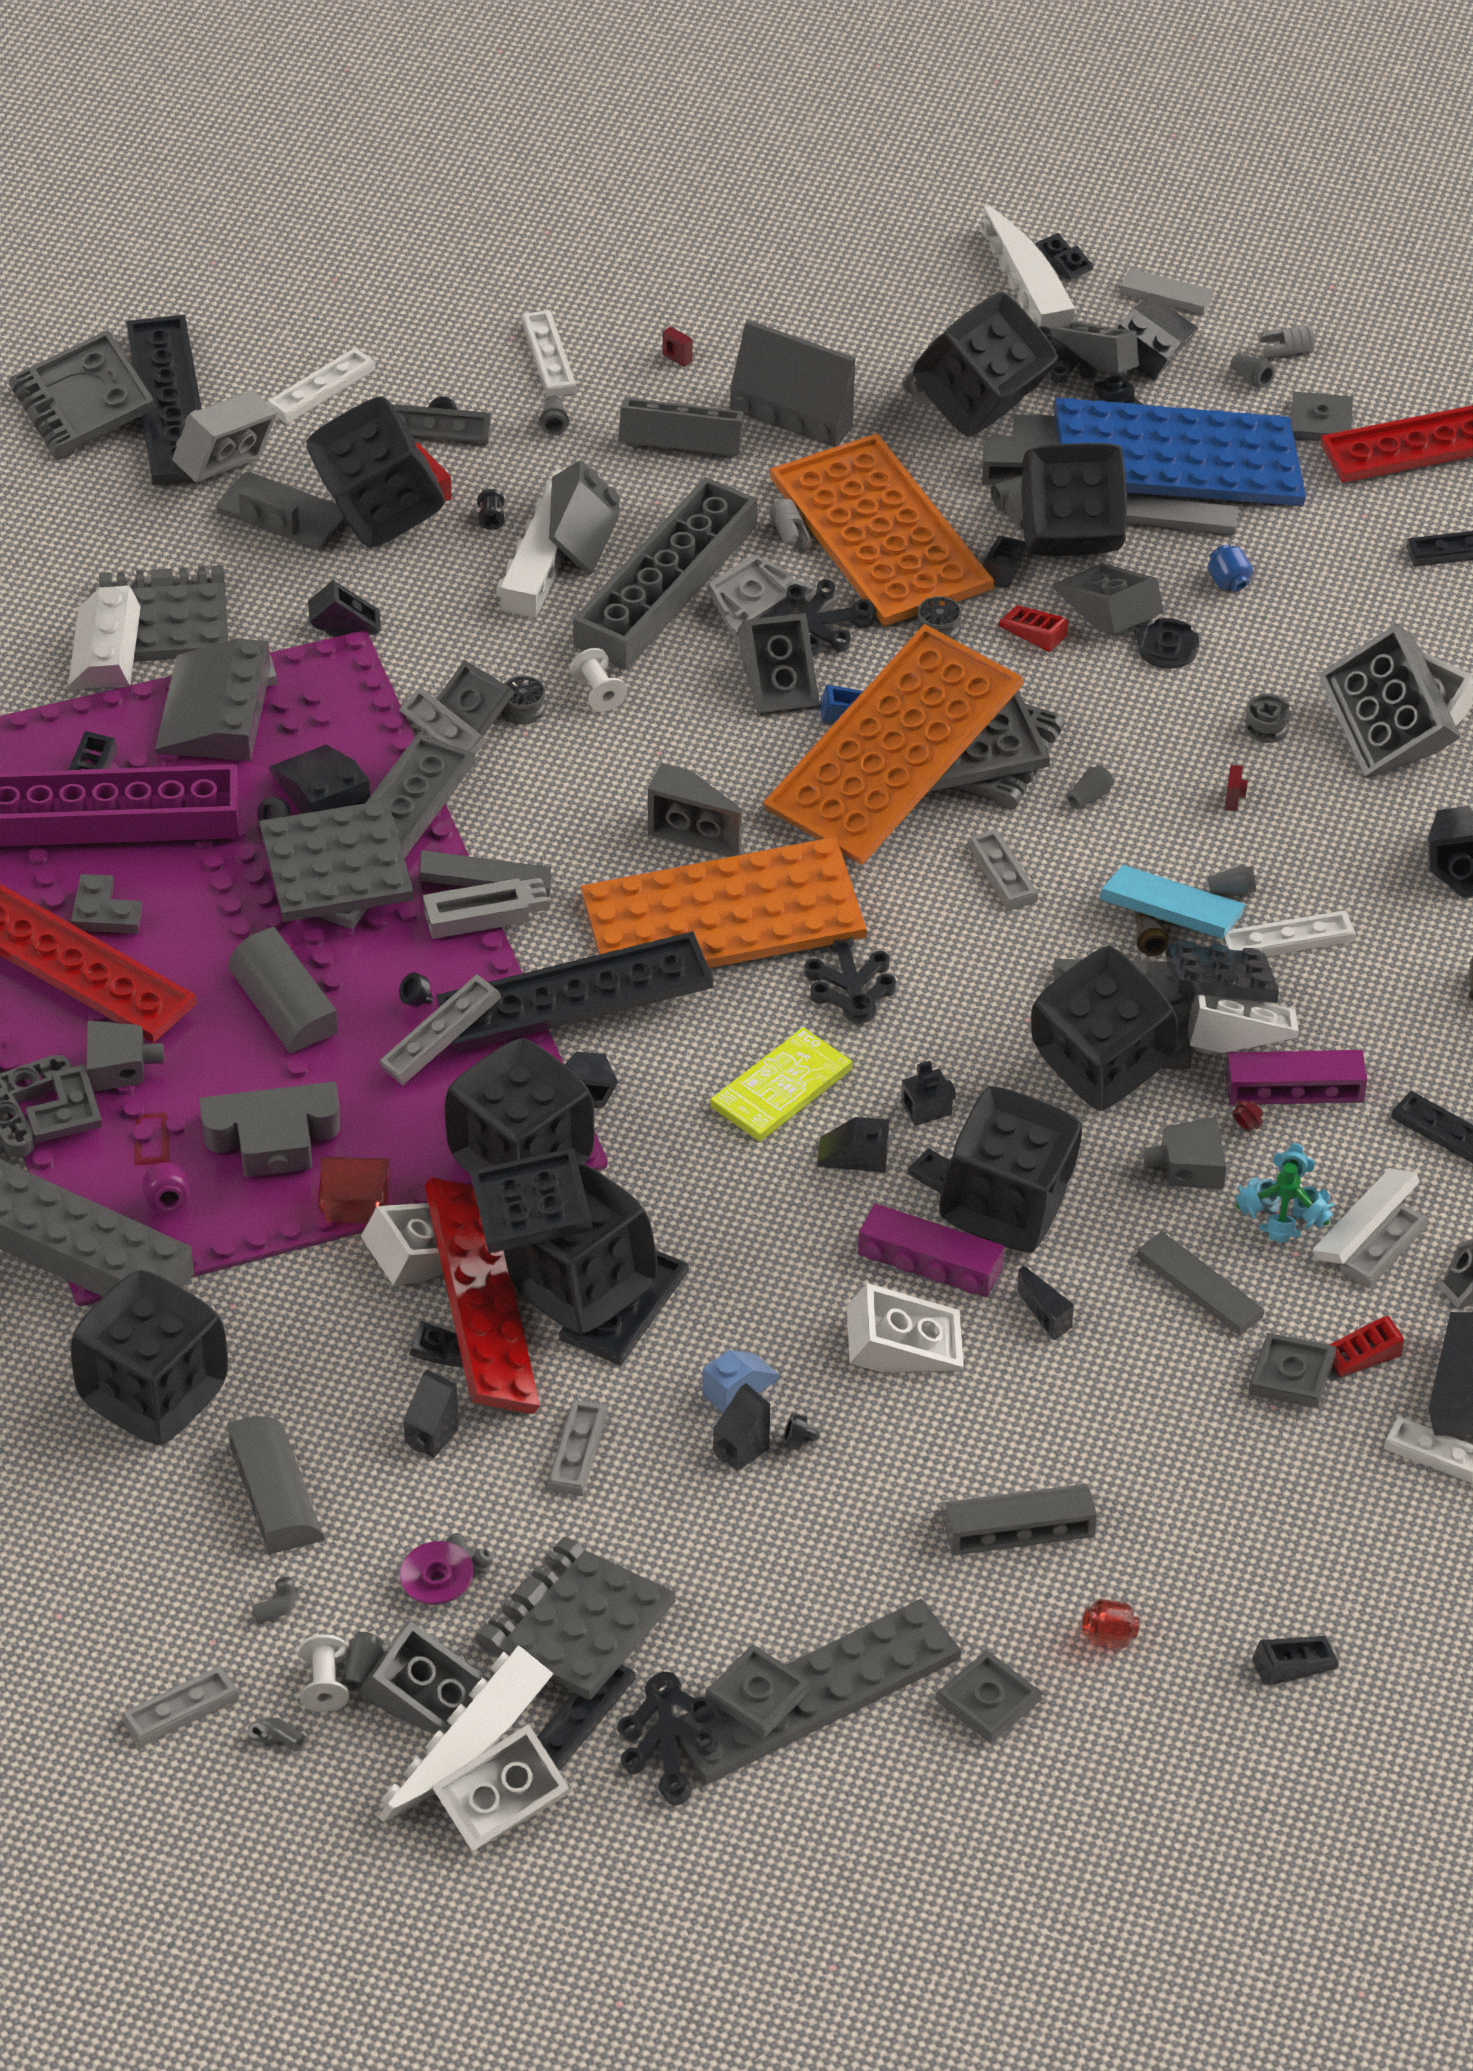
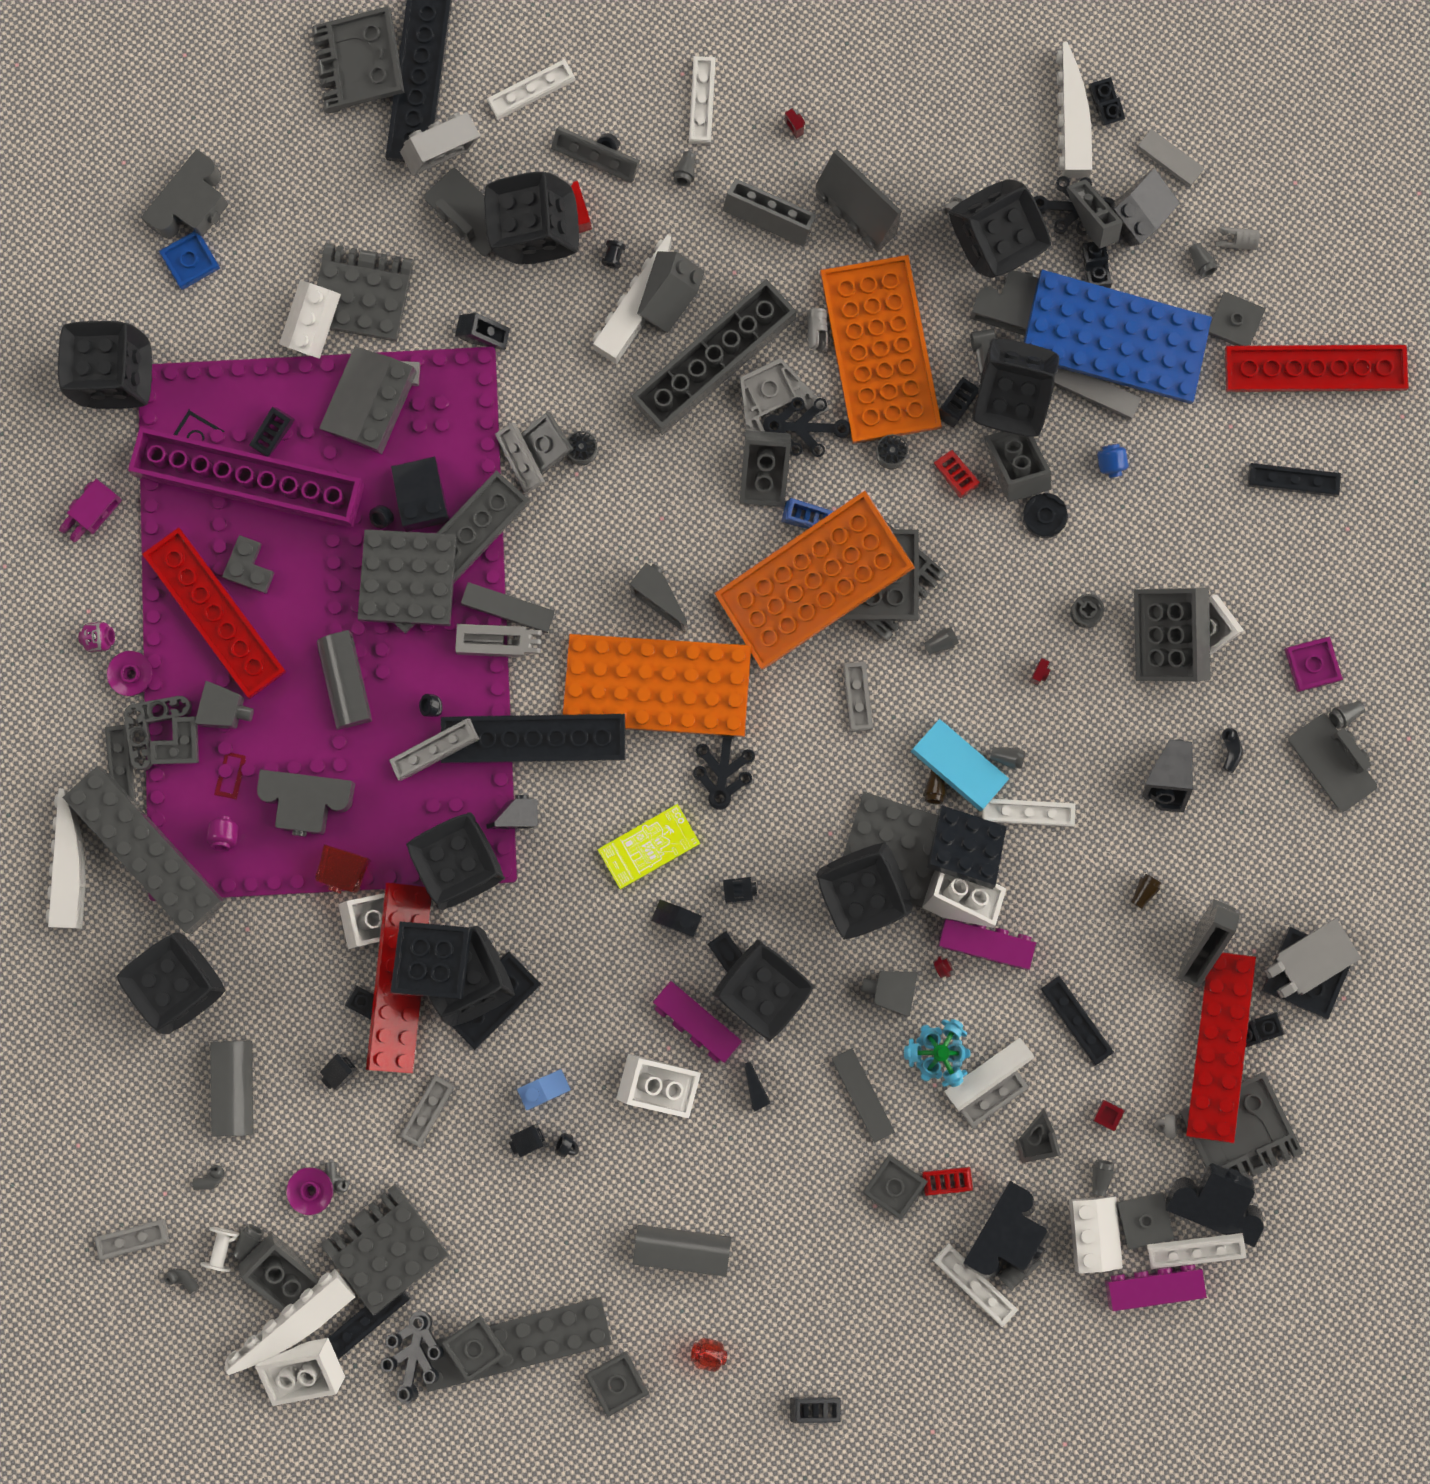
camera: 20 degrees right, 35 degrees up
(606, 691) = (636, 436): white piece -> none

